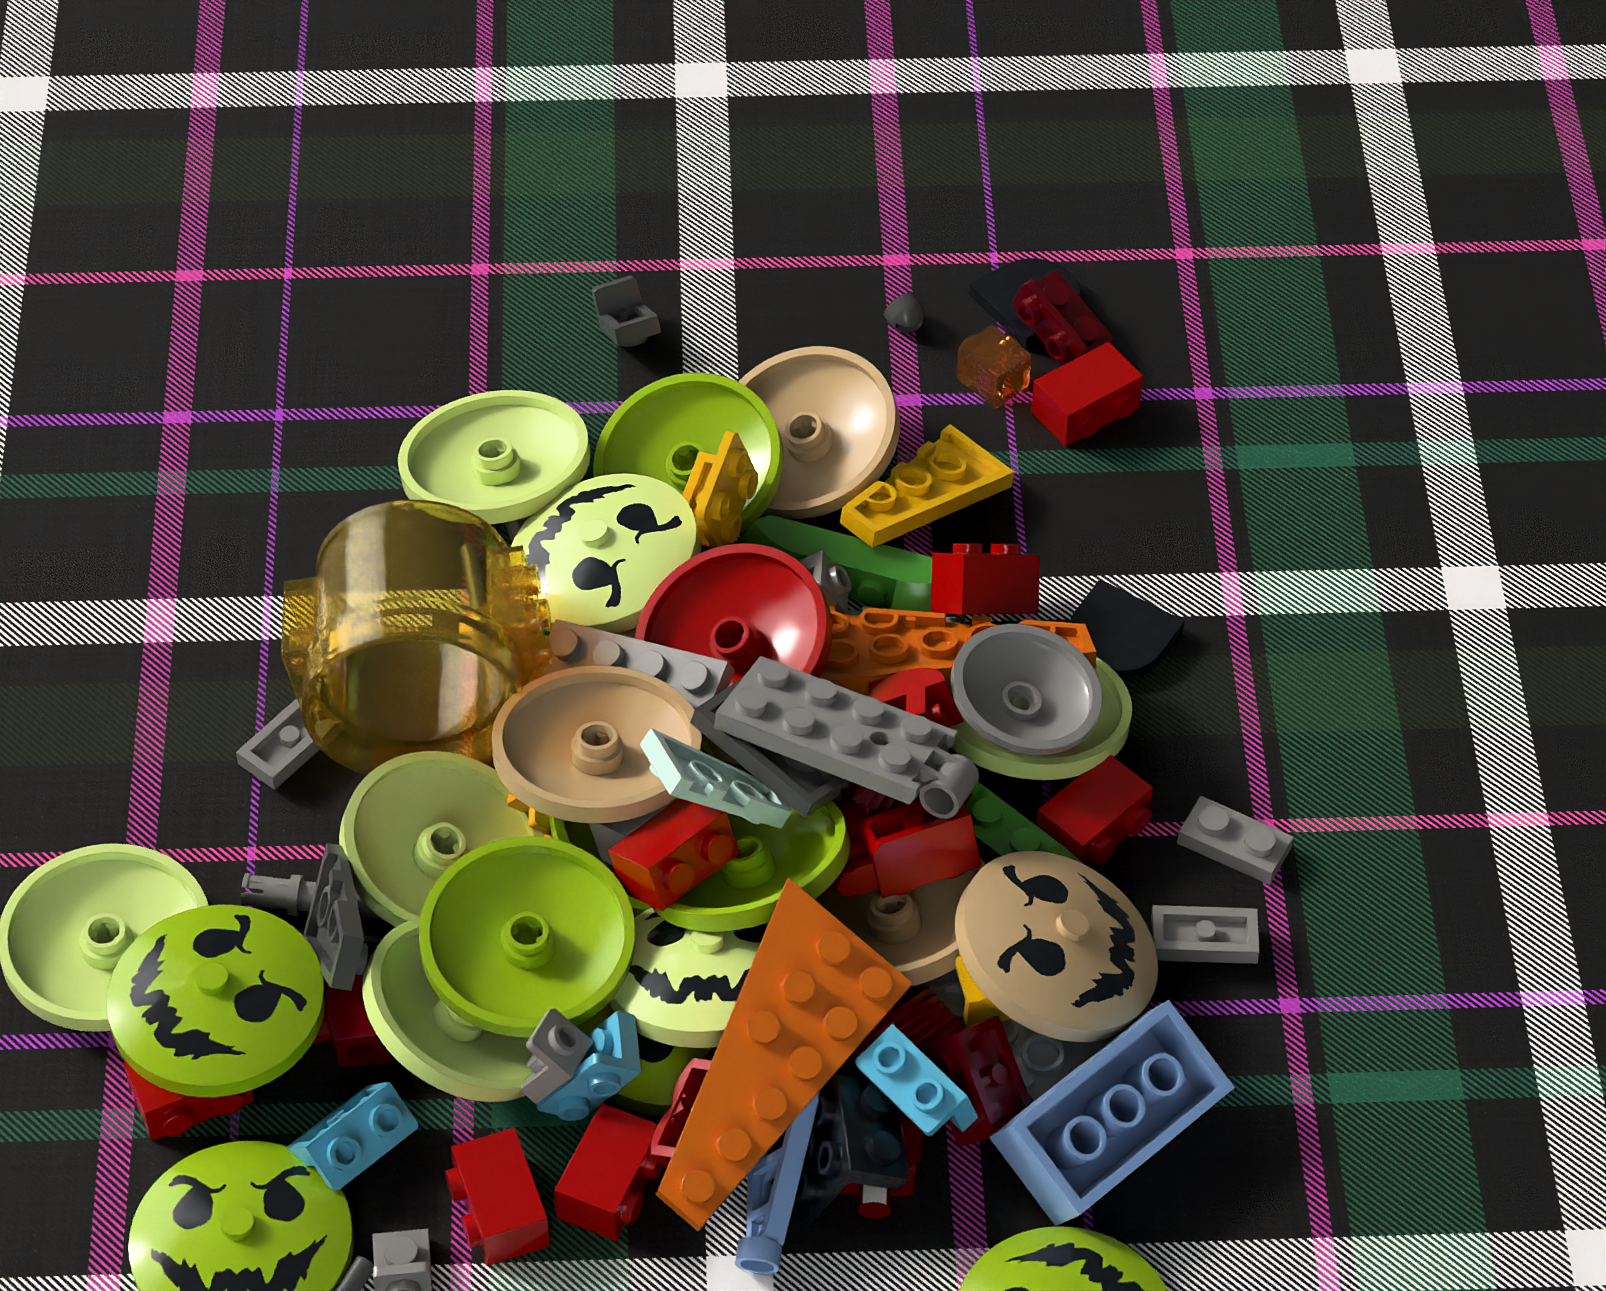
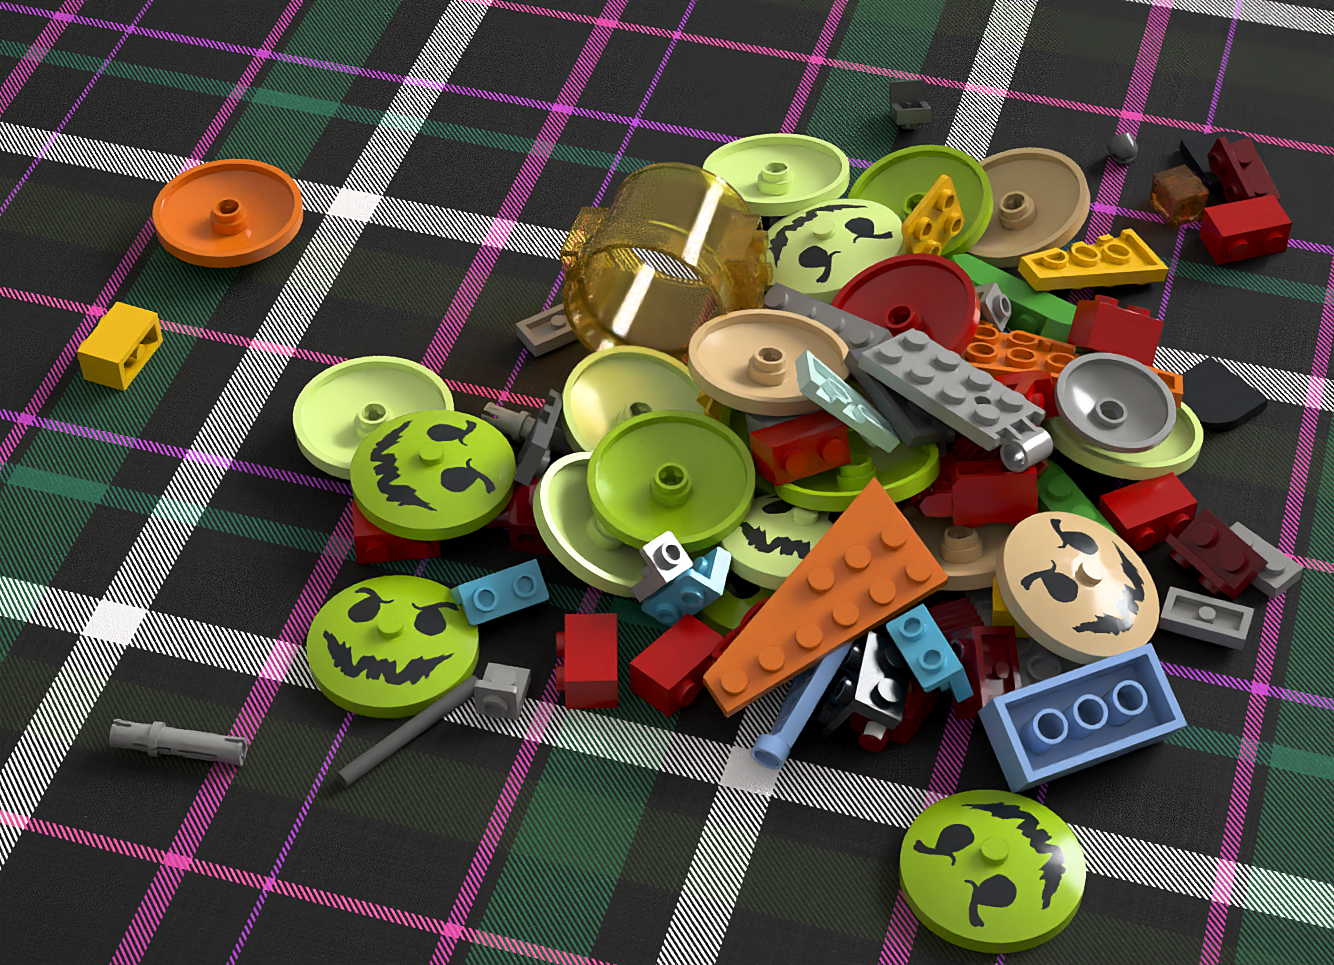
camera: 20 degrees right, 5 degrees down
(1191, 847) = (1217, 553): none -> dark red bracket

